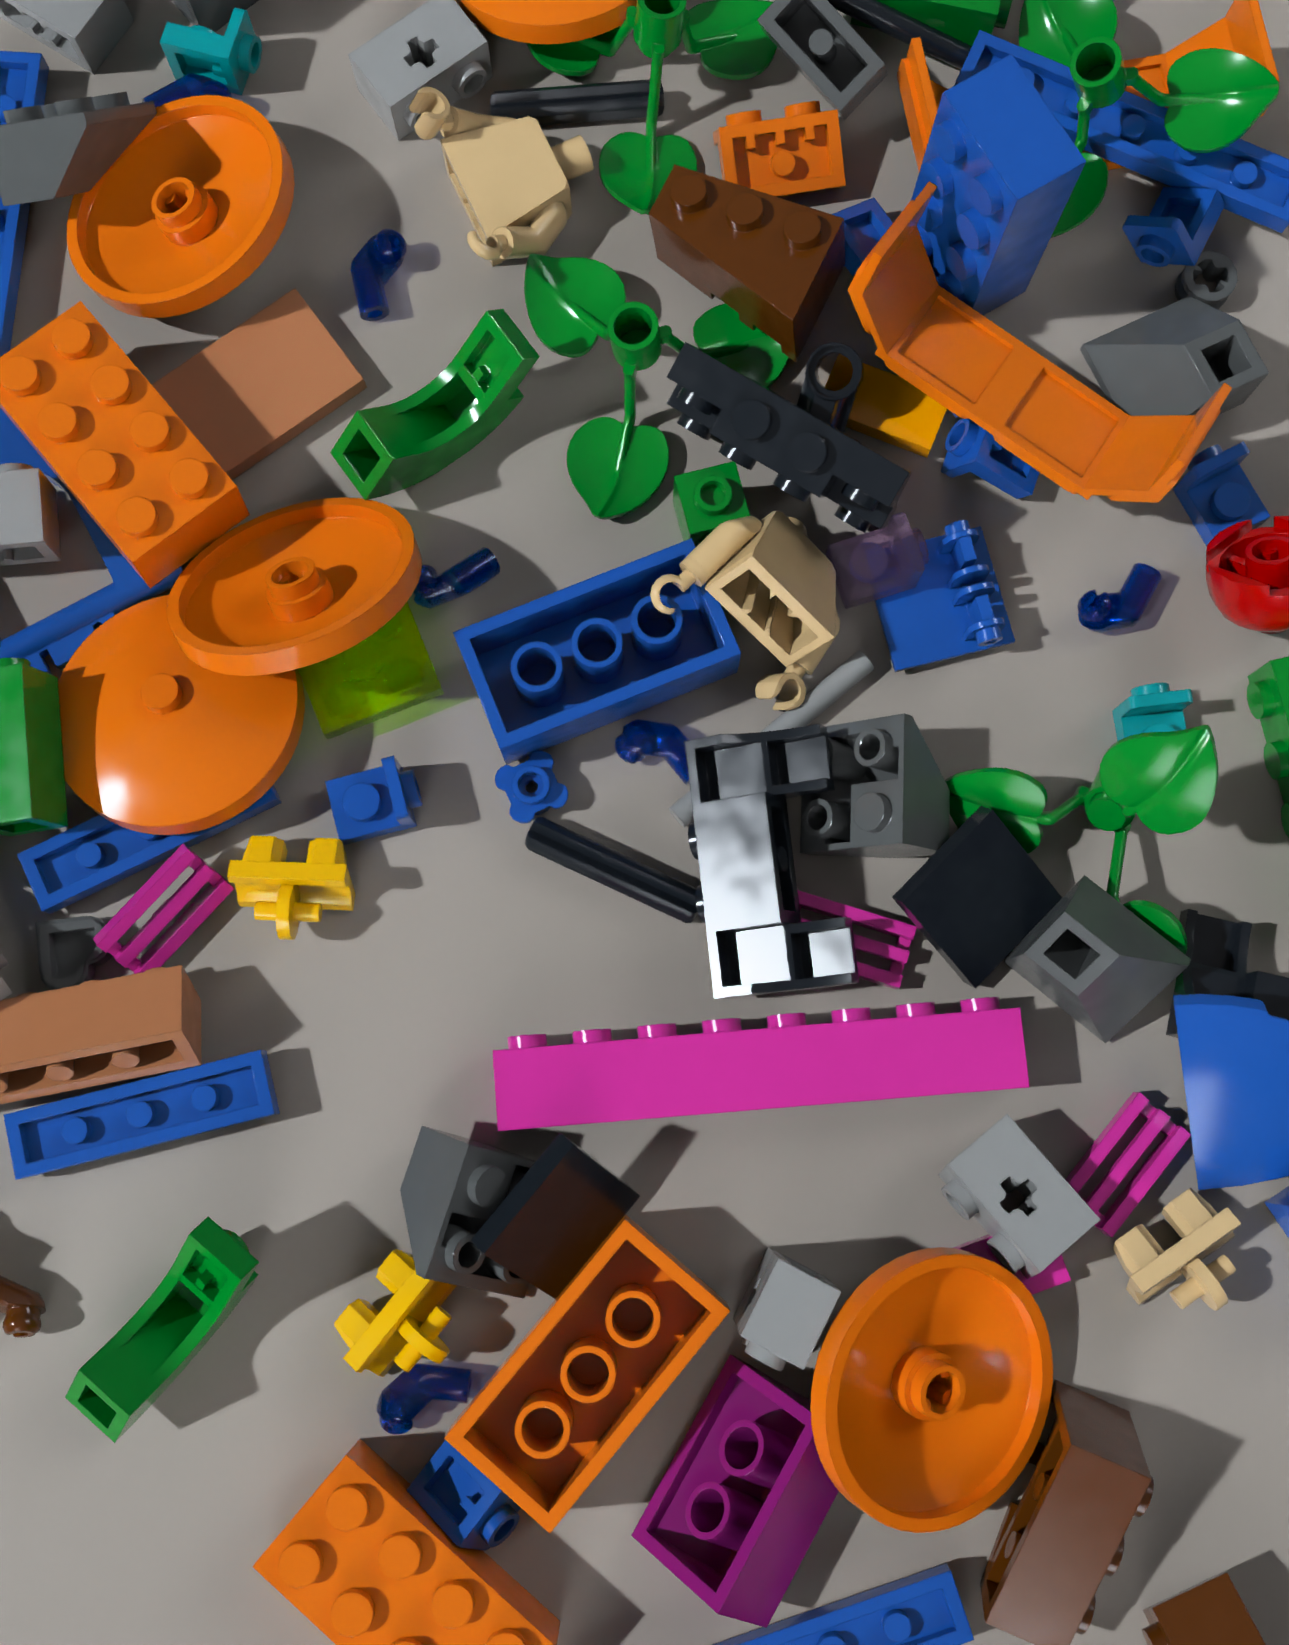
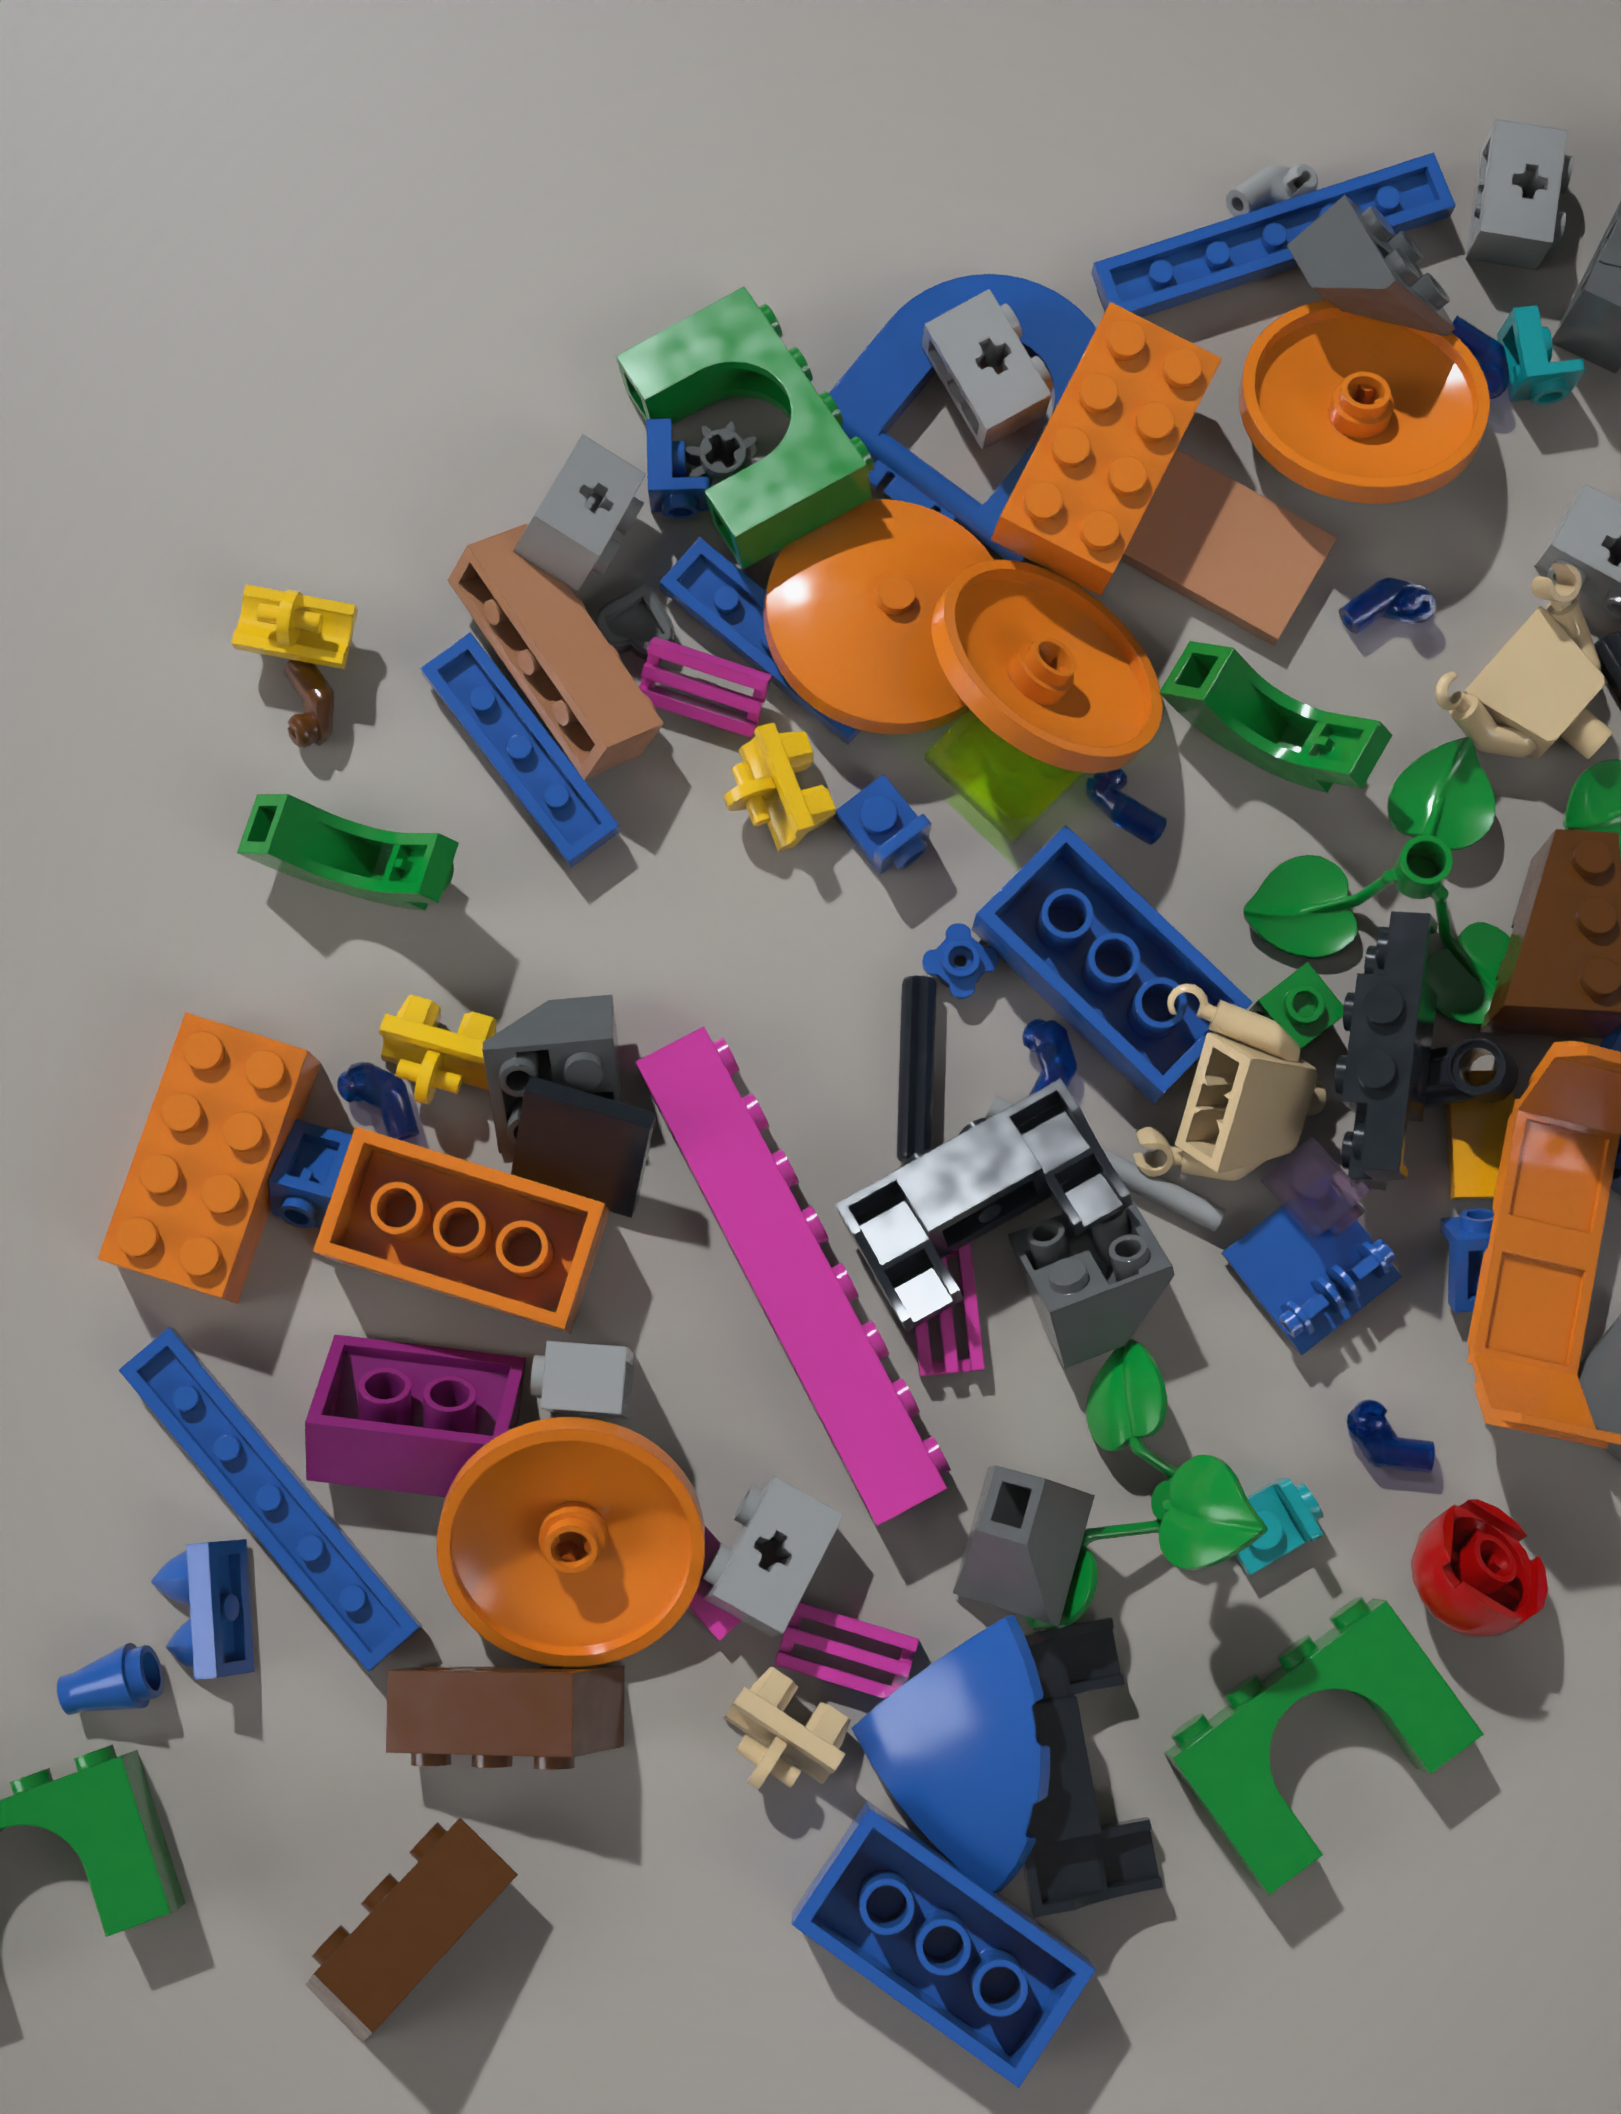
camera: 65 degrees right, 0 degrees up
(977, 896) = (1035, 1410): black tile -> none
(1219, 492) = (1544, 1497): blue bracket -> none

